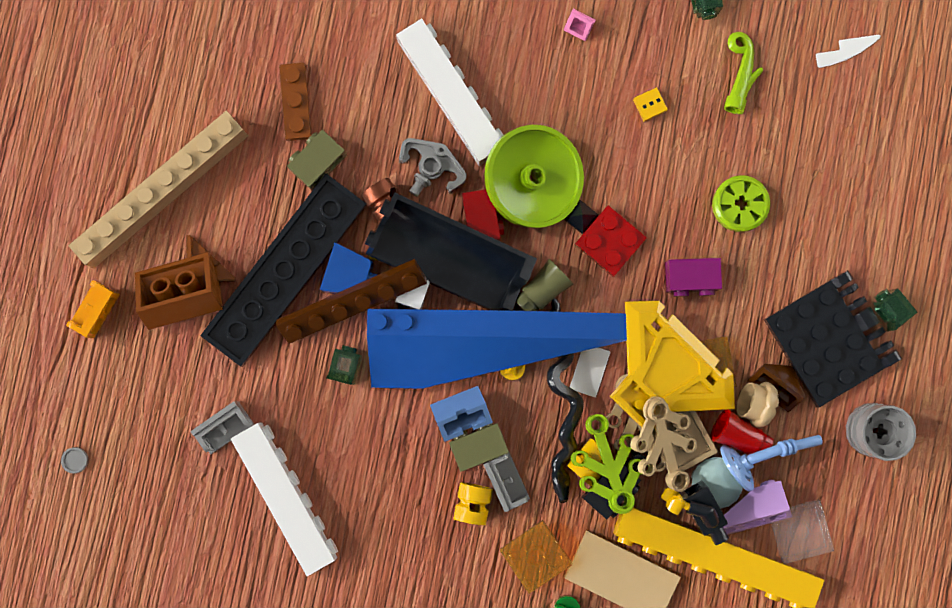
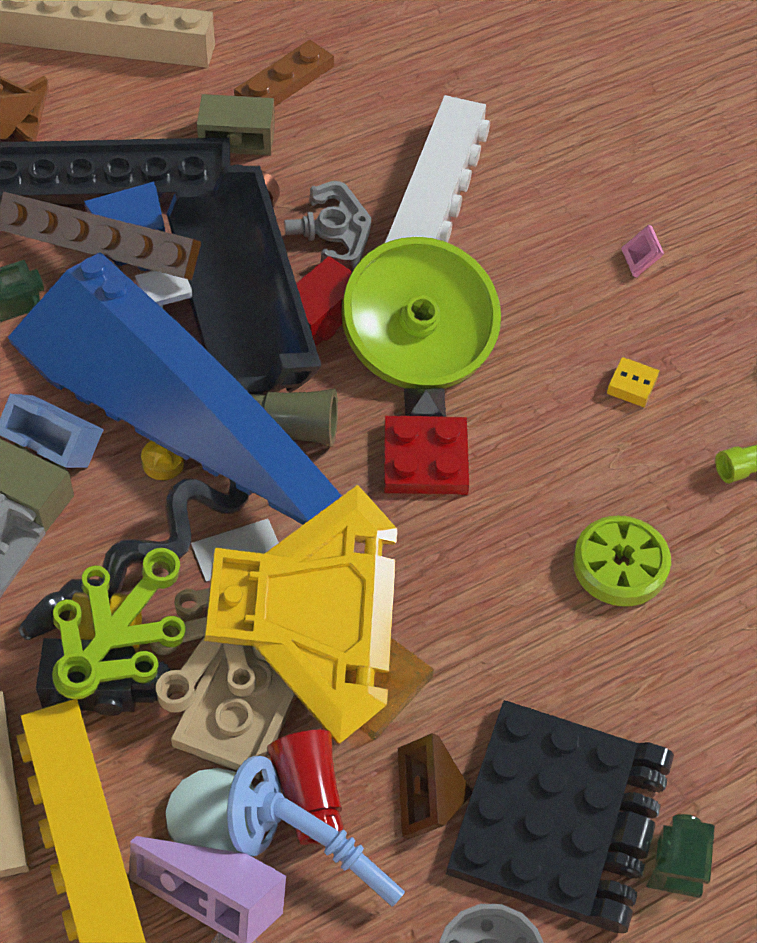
camera: 50 degrees right, 30 degrees down
(675, 478) = (210, 662): tan plant -> none
(693, 276) = (473, 568): magenta brick -> none
(703, 508) = (149, 781): black torso -> none
(758, 403) = (375, 771): tan piece -> none

